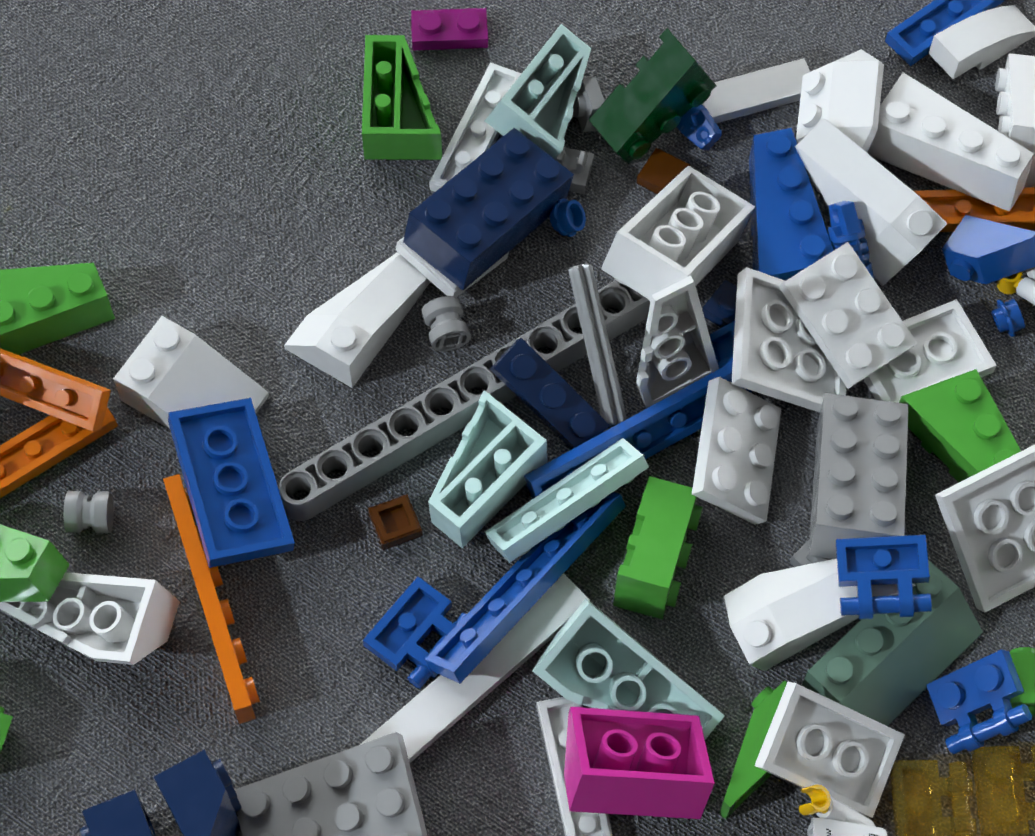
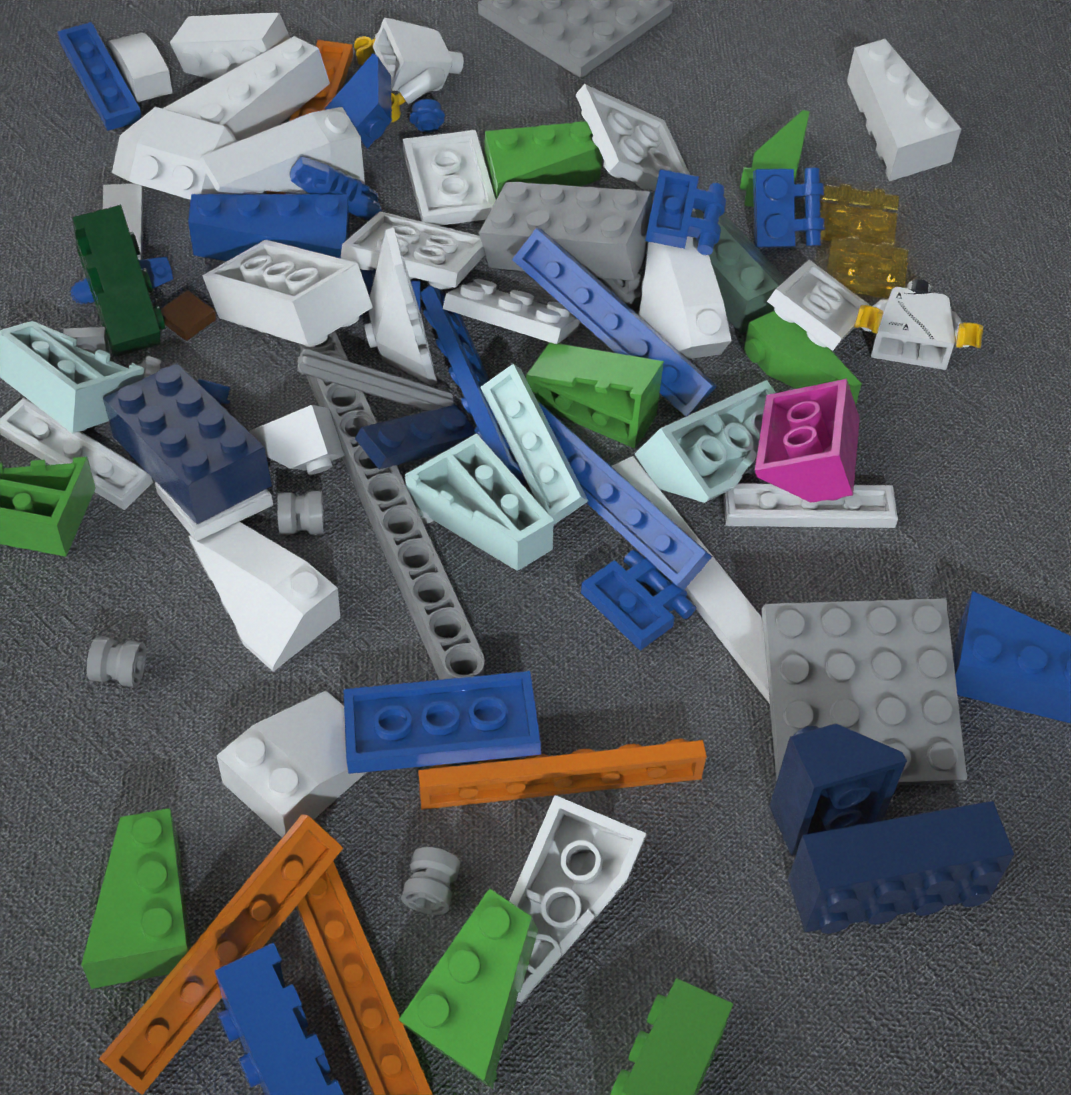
camera: 80 degrees left, 10 degrees down
(258, 226) = (114, 660): none -> light grey wheel
(395, 522) = (509, 601): reddish brown tile -> none
(518, 297) = (302, 440): none -> white slope
(742, 545) = (611, 319): none -> plate
(847, 315) = (404, 199): white plate -> none

